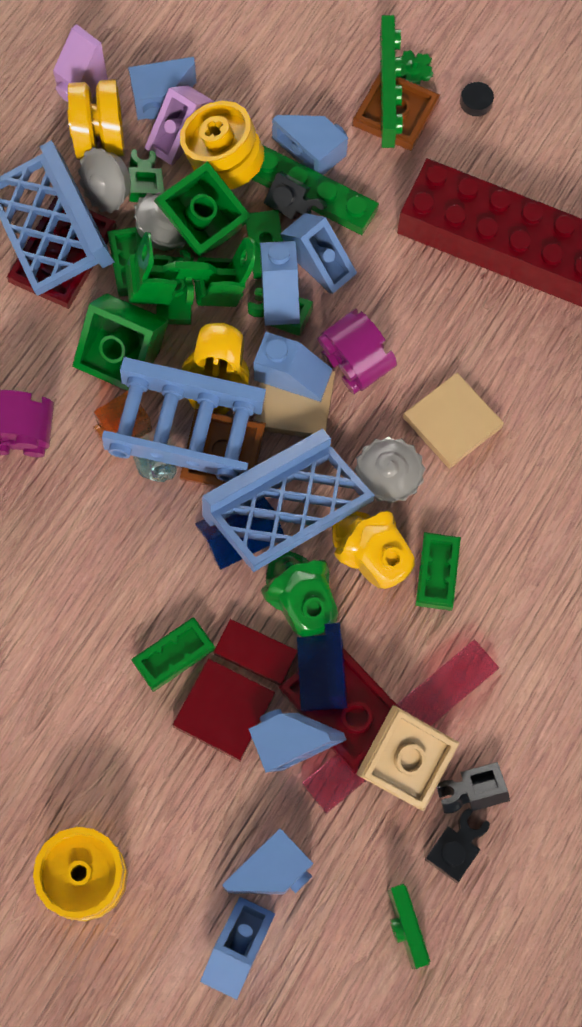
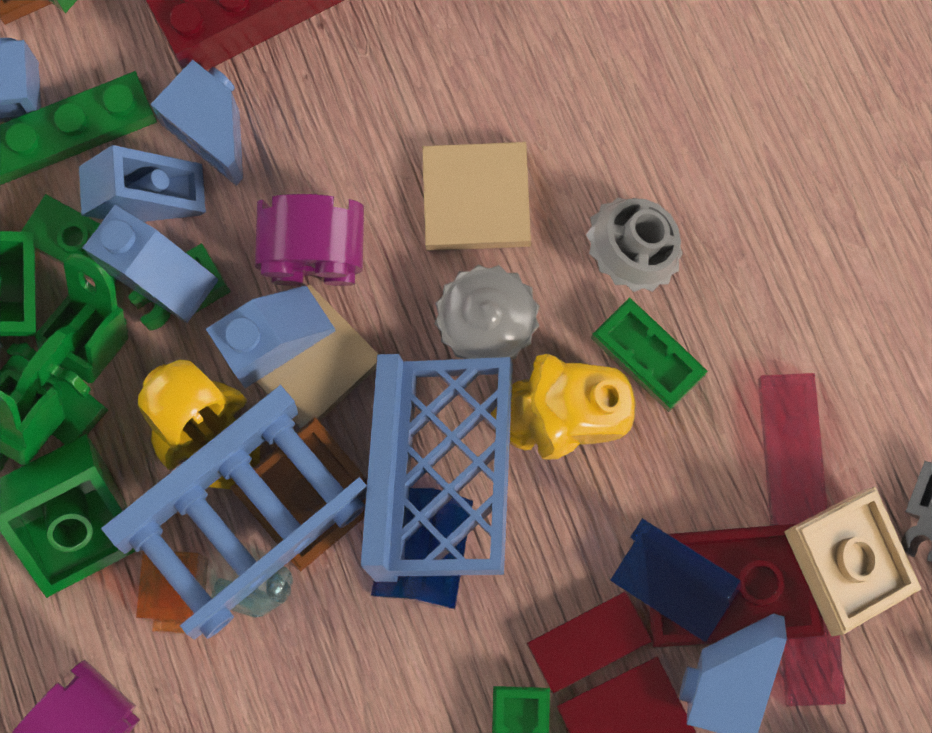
camera: 45 degrees left, 5 degrees up
(290, 197) = (42, 167): black plate -> none
(301, 593) = (563, 534): green head -> none
(382, 254) = (204, 116): none -> medium blue slope
(493, 520) = (635, 243): none -> light grey piece

